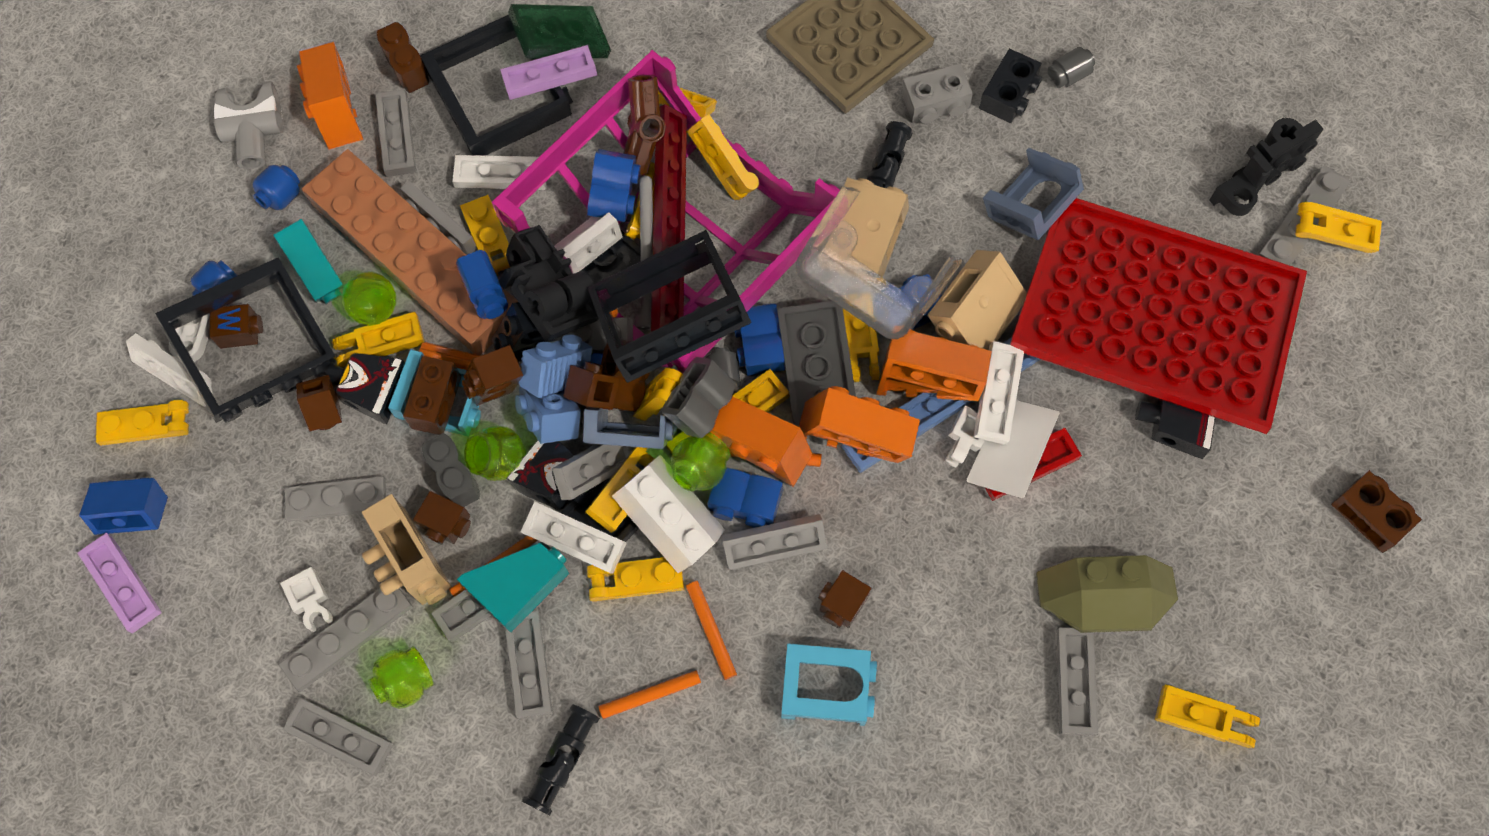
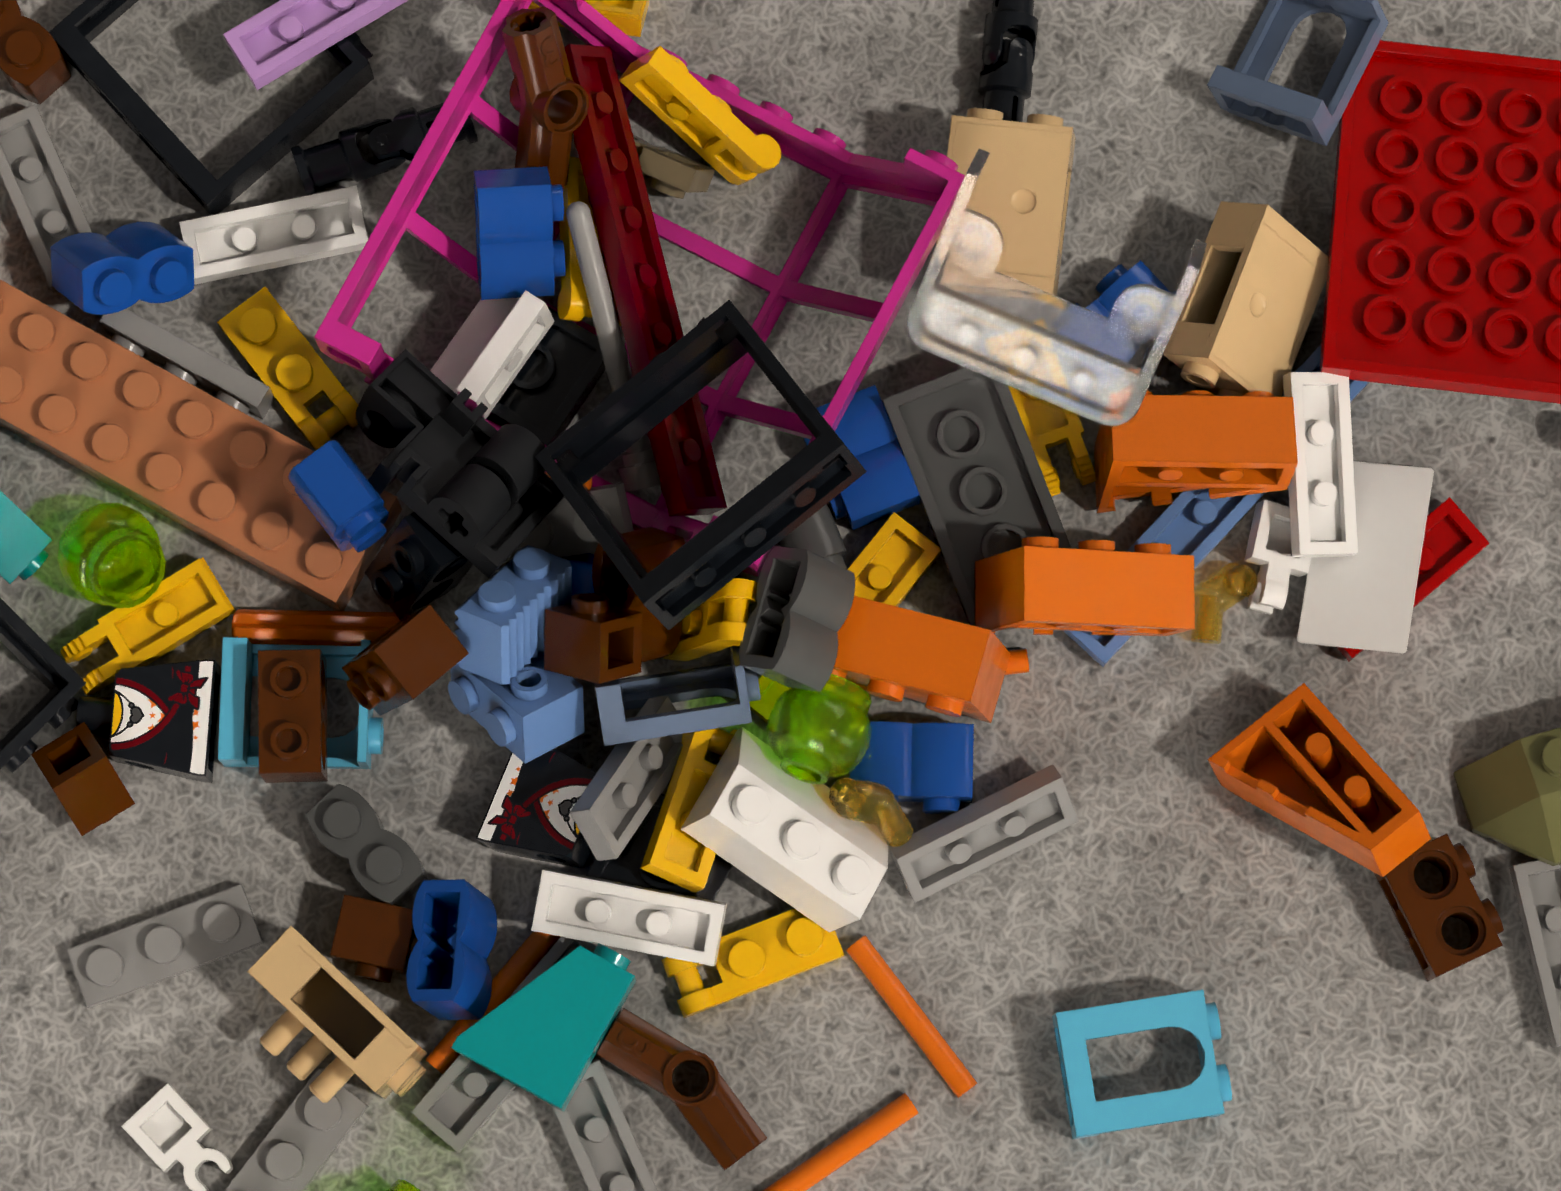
camera: 20 degrees left, 10 degrees up
(412, 166) = (121, 268): none -> blue brick
(476, 532) = (449, 960): none -> blue brick
(494, 452) = (439, 796): clear neon green piece -> none
(537, 144) = (389, 142): none -> black piece
(567, 618) = (713, 1115): none -> reddish brown piece
(702, 184) = (672, 172): none -> dark tan plate
(717, 509) = (874, 805): none -> clear yellow arm
(843, 599) = (1131, 908): reddish brown brick -> none
(928, 451) = (1216, 595): none -> clear yellow arm
(962, 556) = (1321, 782): none -> orange wedge
(1002, 640) = (1423, 913): none -> reddish brown brick

